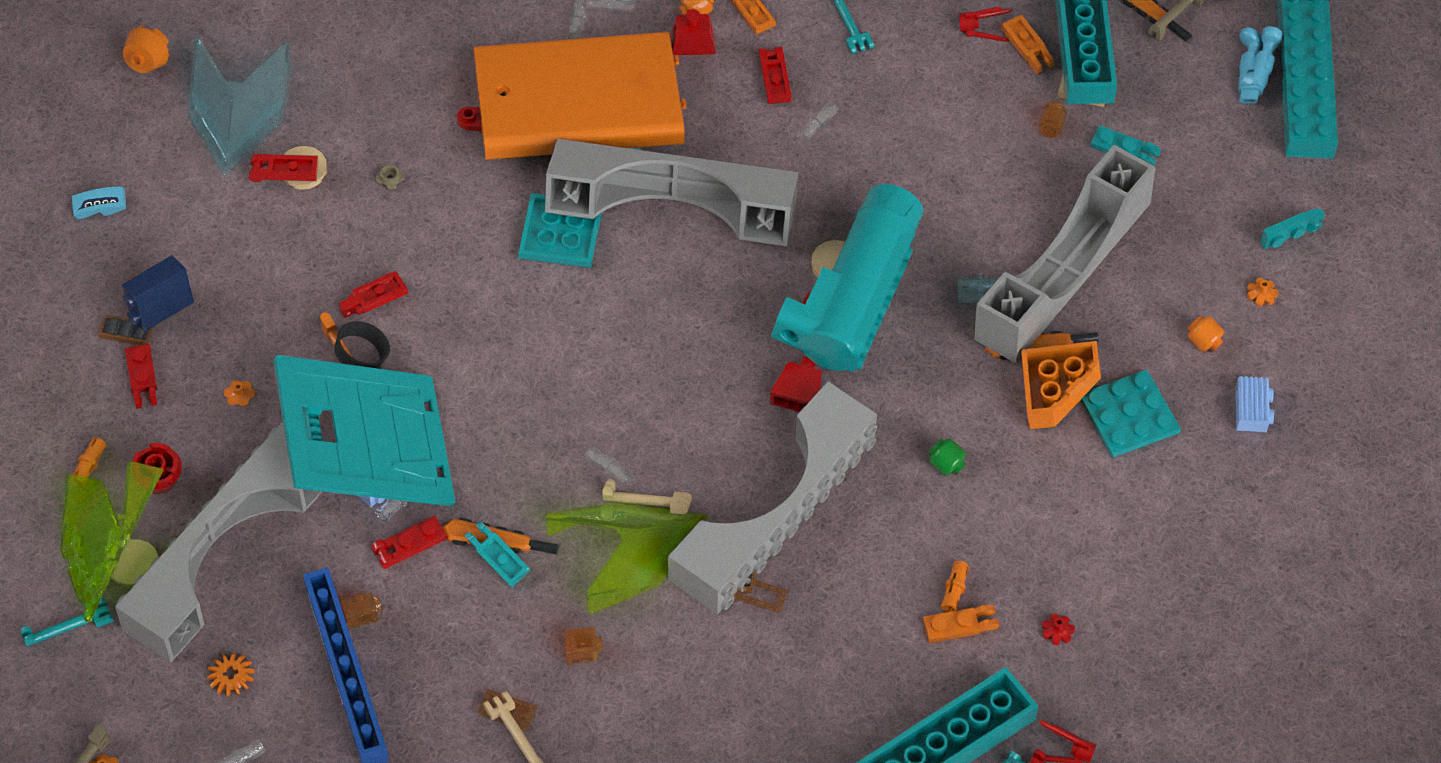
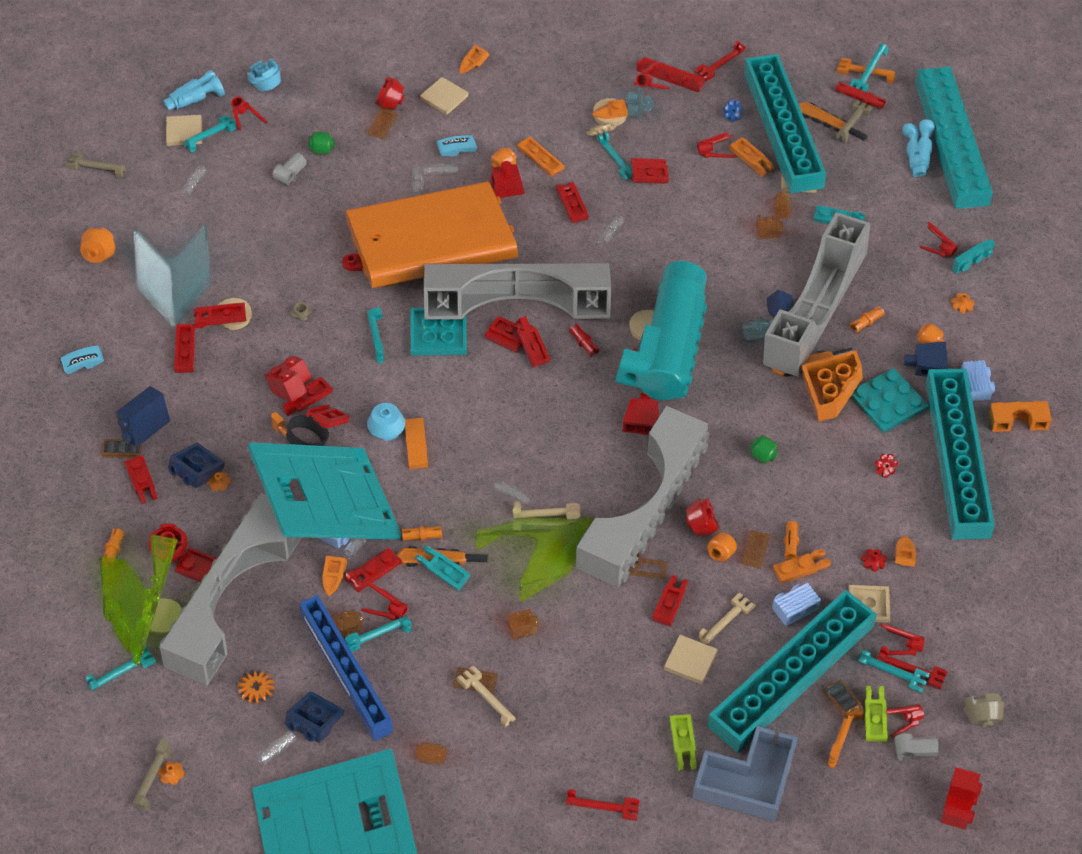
camera: 10 degrees left, 5 degrees down
(186, 500) = (195, 564): none -> red plate
(212, 367) = (195, 465): none -> dark blue plate
(231, 206) = (184, 348): none -> red plate
(292, 726) = (313, 717): none -> dark blue plate
(353, 267) = (289, 378): none -> red brick
(357, 539) = (333, 573): none -> orange plate
(363, 634) = (354, 640): none -> teal hinge
(392, 327) = (328, 417): none -> red plate
(427, 597) = (396, 607): none -> red plant
(466, 345) = (386, 421): none -> medium azure cone
(481, 196) = (373, 315): none -> teal hinge
(481, 503) = (422, 533): none -> orange pin
(500, 379) = (416, 443): none -> orange tile
(649, 247) = (504, 334): none -> red plate
(677, 266) = (532, 343): none -> red hinge
(747, 270) = (584, 340): none -> red pin
(778, 645) = (670, 602): none -> red hinge
(787, 726) = (690, 659): none -> tan tile
(843, 538) = (701, 517): none -> red cone
(861, 582) = (721, 547): none -> orange head
(866, 665) = (706, 637): none -> tan hinge
(886, 45) = (649, 170): none -> red plate
(906, 591) = (755, 549): none -> clear orange tile
(940, 673) = (796, 603): none -> light blue brick
(1017, 257) = (778, 301): none -> dark blue brick
(1027, 148) = (768, 227): none -> clear orange brick
(1043, 684) = (874, 597): none -> tan tile
(1100, 625) = (905, 552): none -> orange plate
(1103, 503) = (885, 465): none -> red plant
(1128, 296) = (867, 319): none -> orange pin
(1196, 366) = (927, 357): none -> dark blue torso
(1203, 503) = (959, 454): none -> teal brick
(1260, 209) = (947, 247): none -> red plant
(1318, 460) = (1034, 413): none -> orange arch

